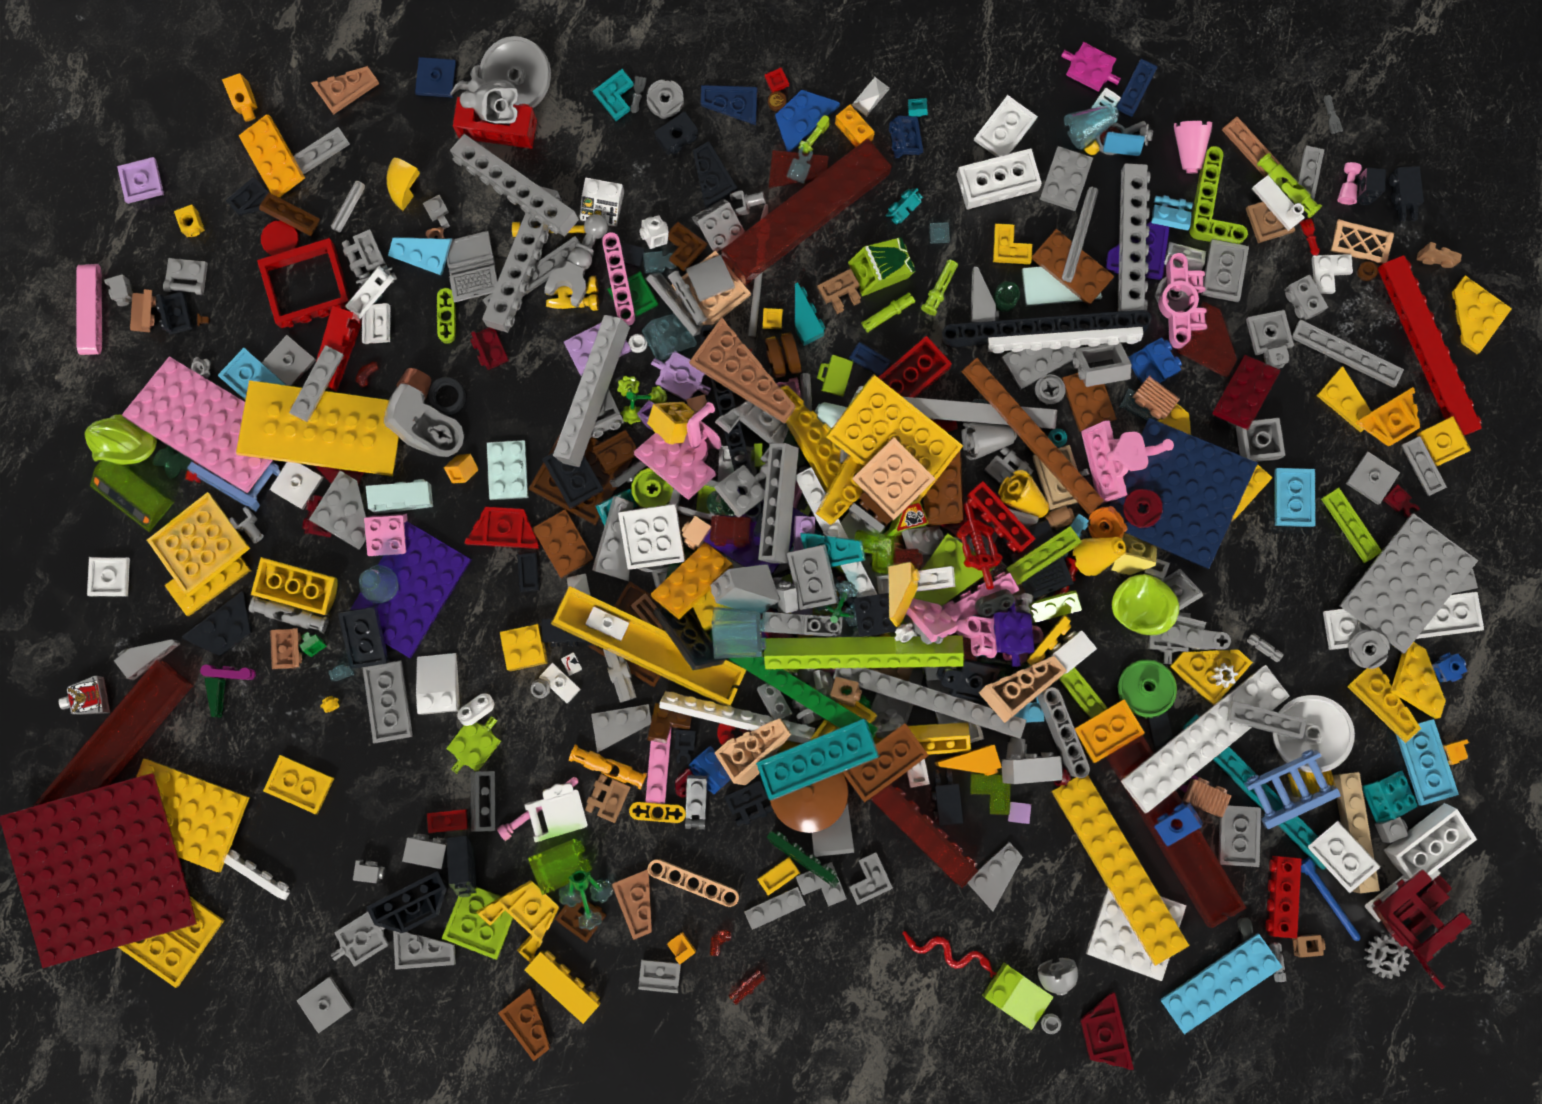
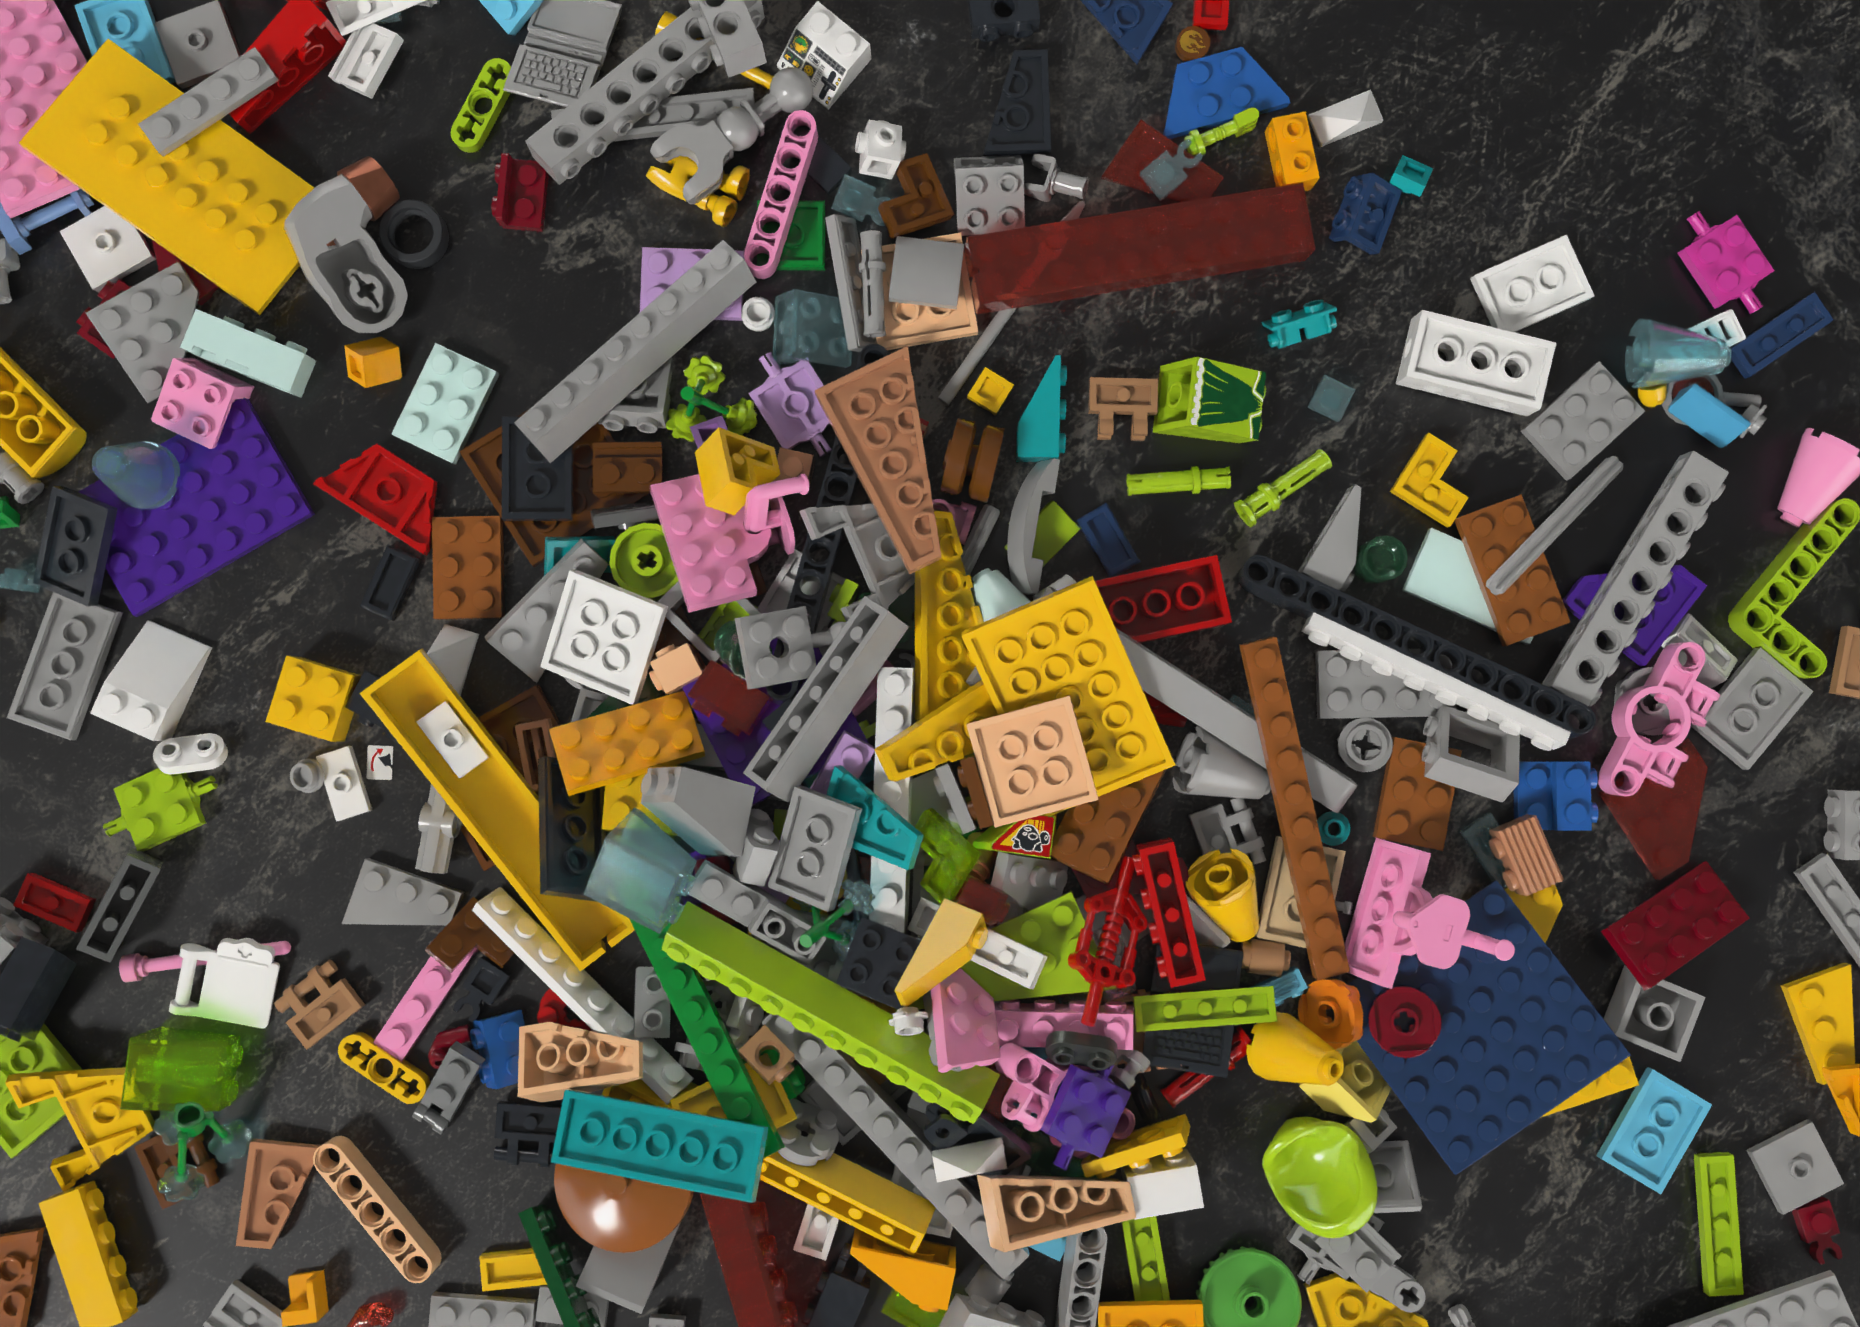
camera: 25 degrees right, 5 degrees up
(361, 377) = (307, 124): clear red arm -> none
(598, 763) = (340, 950): light orange piece -> none
(824, 372) = (1024, 569): none -> light grey slope
(897, 755) = (789, 1205): dark orange plate -> none
(970, 686) = (969, 1159): none -> white slope
(1054, 606) = (1176, 1097): plate -> none
(1169, 216) = (1716, 576): medium azure plate -> none
(1273, 347) = (1760, 875): light grey plate -> none

